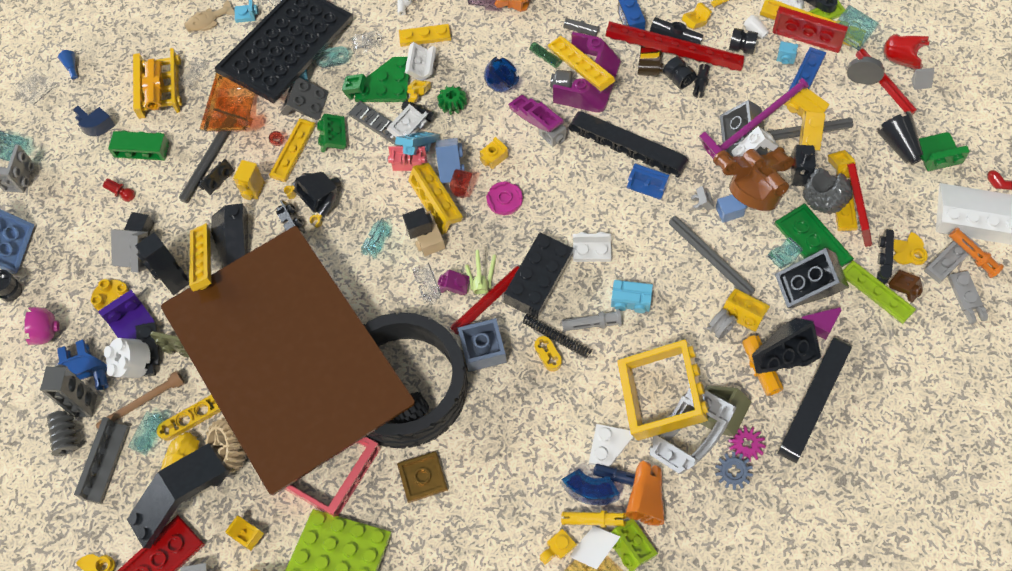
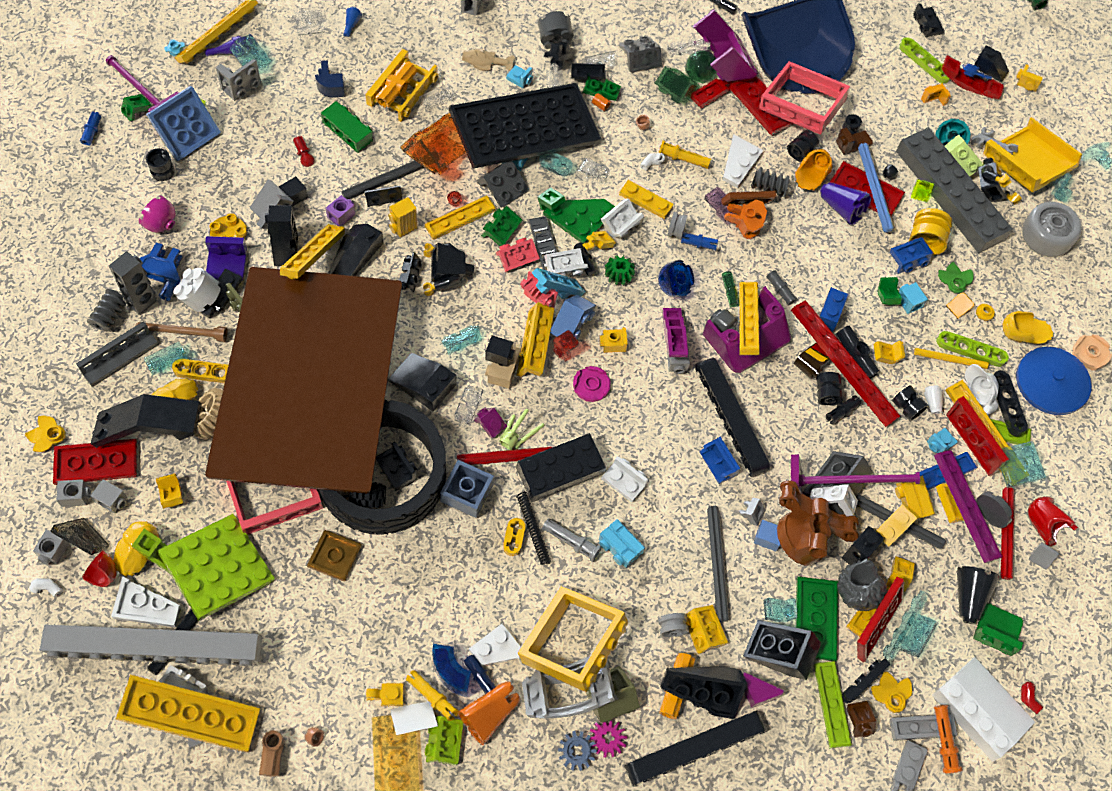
camera: 25 degrees right, 0 degrees up
(191, 219) = (336, 215): none -> medium lavender brick
(364, 144) = (518, 254): none -> coral bracket
(375, 290) = (424, 380): none -> black slope
(413, 371) = (396, 466): none -> black bracket
(466, 36) = (677, 225): none -> light grey wheel
(492, 36) = (699, 241): none -> blue pin
(831, 89) = (949, 504): none -> yellow plate
(844, 82) = (967, 506): none -> magenta tile
(887, 196) = (913, 632): none -> clear light blue bracket

